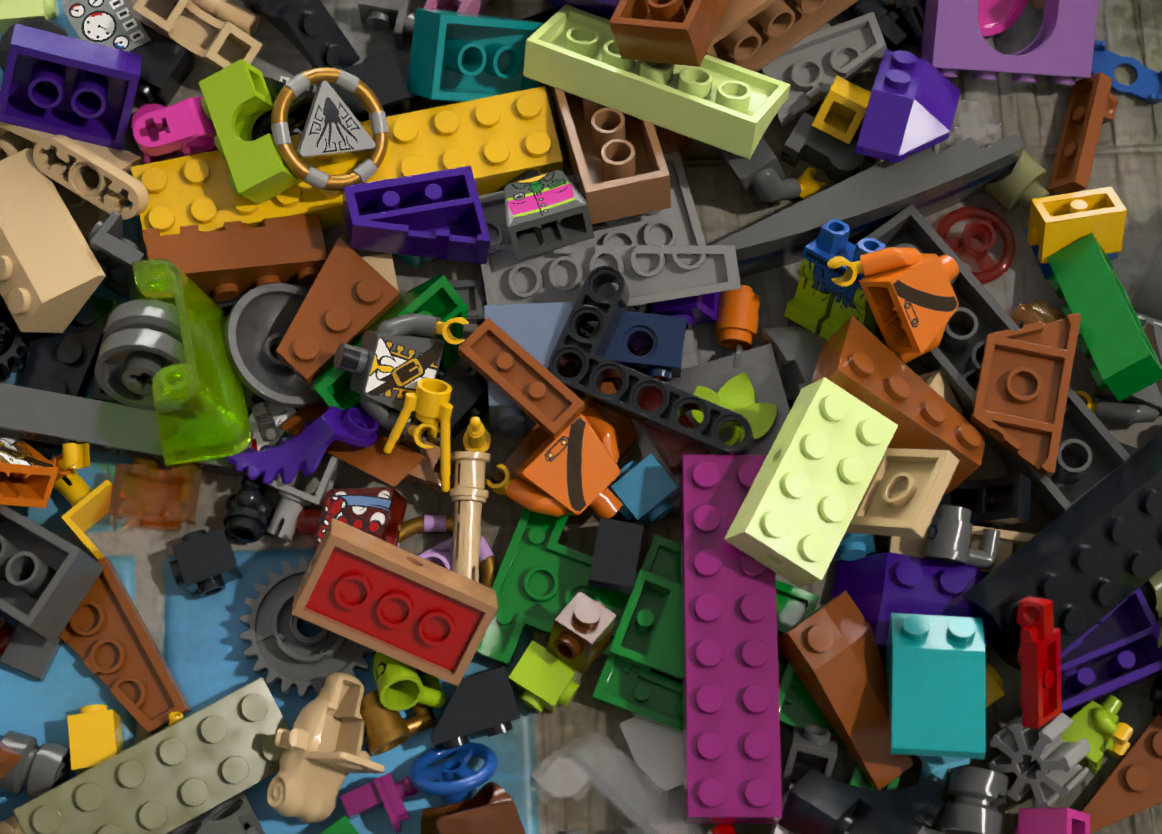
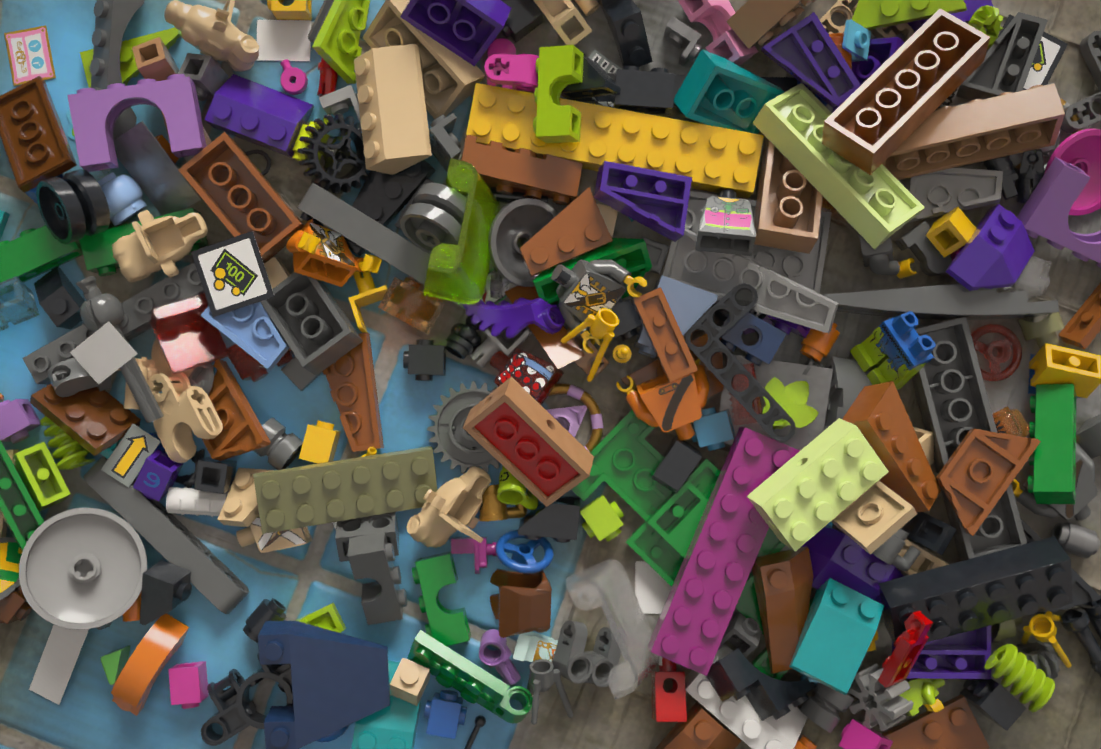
camera: 25 degrees right, 15 degrees up
(72, 176) = (434, 77): tan beam -> none
(330, 128) = (612, 114): piece -> none
(468, 497) = (601, 388): tan pin -> none
(581, 632) = (635, 506): reddish brown brick -> none
(906, 294) = (933, 383): orange torso -> none

